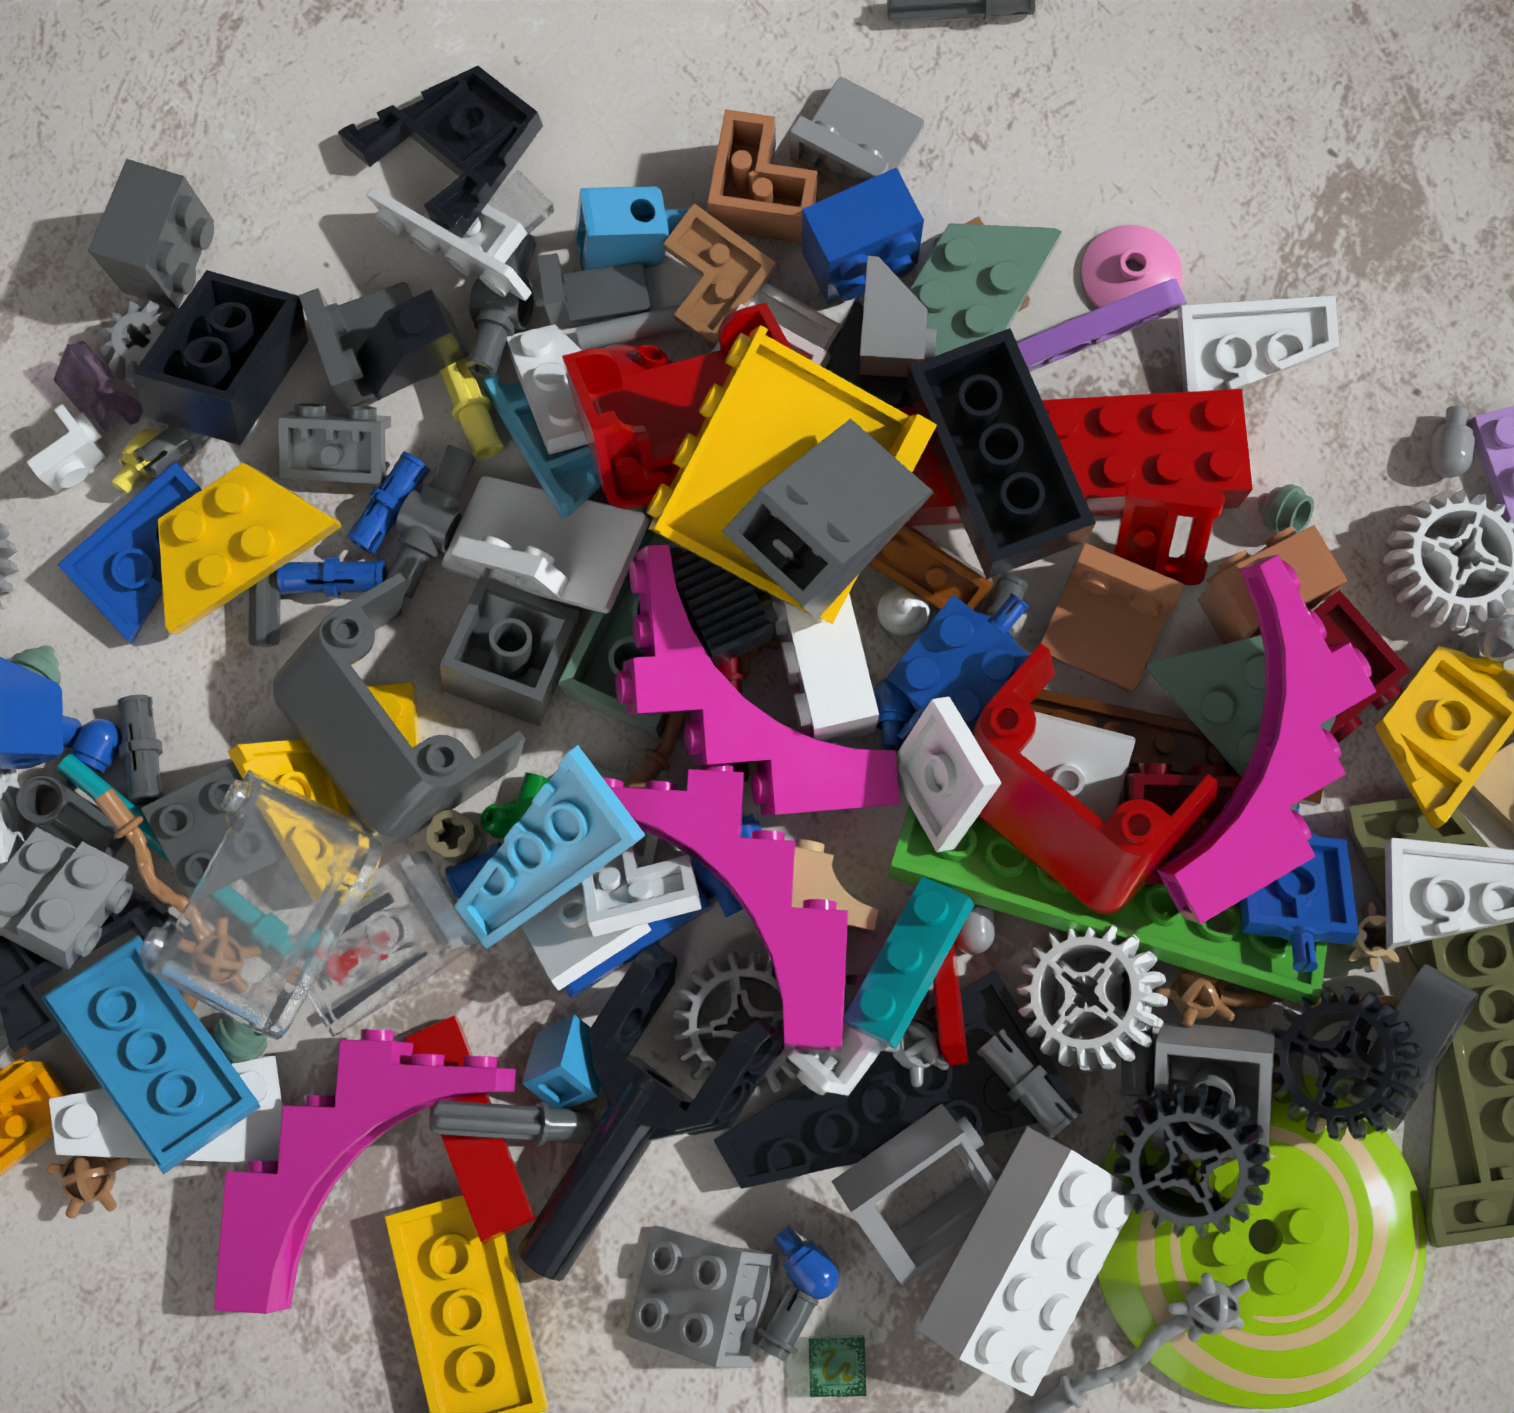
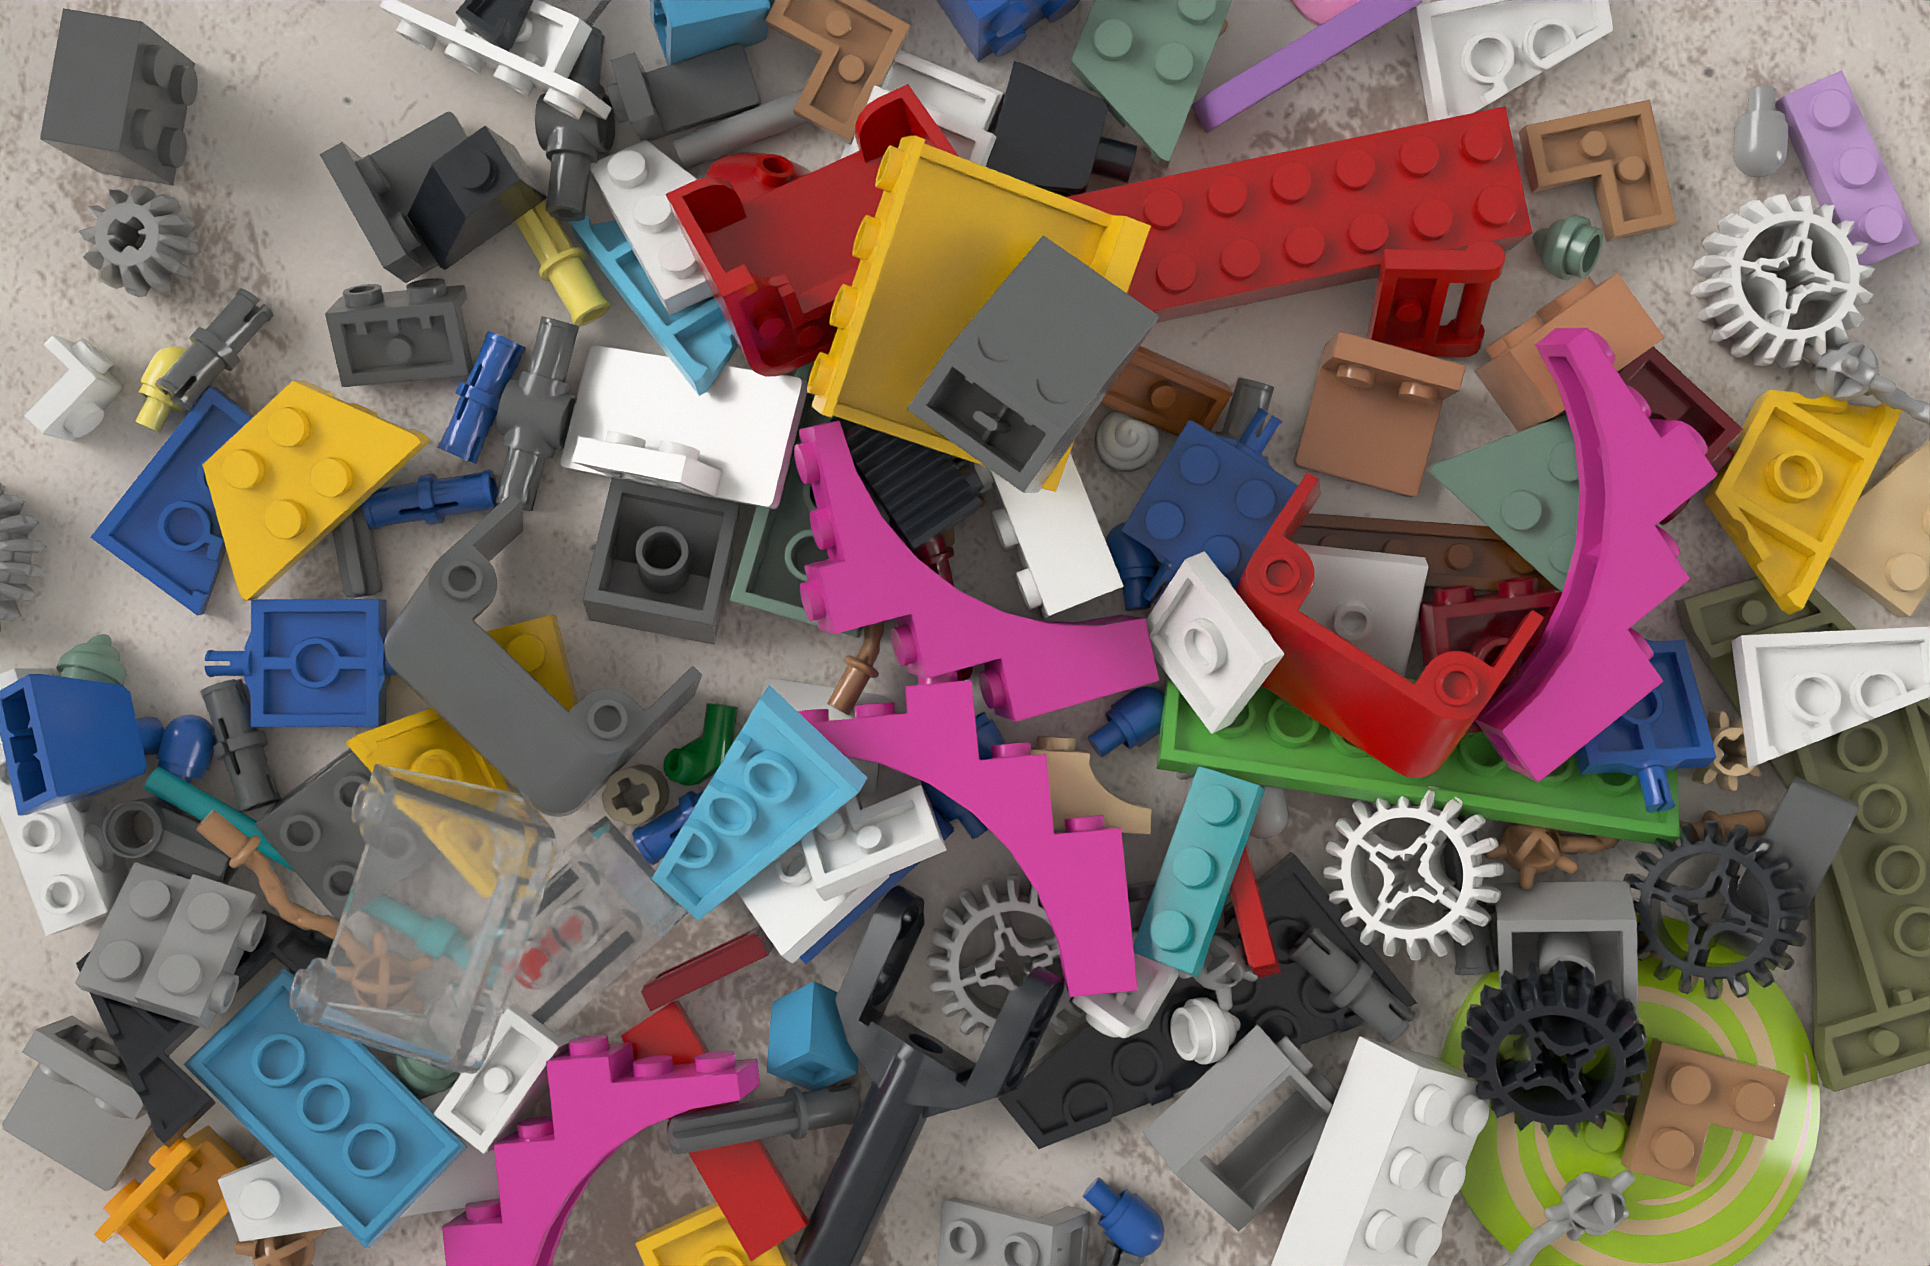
camera: 15 degrees left, 10 degrees up
(88, 384) = (82, 304): clear purple plate -> none
(212, 691) = (313, 663): none -> blue plate
(221, 357) = (238, 248): black brick -> none
(303, 1058) = (508, 1085): none -> white panel
(487, 989) = (706, 968): none -> dark red tile
(872, 840) = (1130, 721): none -> blue cylinder
(892, 325) = (1069, 89): light grey slope -> none
(895, 1103) = (1203, 1030): none -> white plate
(999, 454) = (1225, 238): black brick -> none
(1303, 1221) = (1684, 1095): none -> medium nougat plate
(1330, 439) = (1615, 151): none -> medium nougat plate

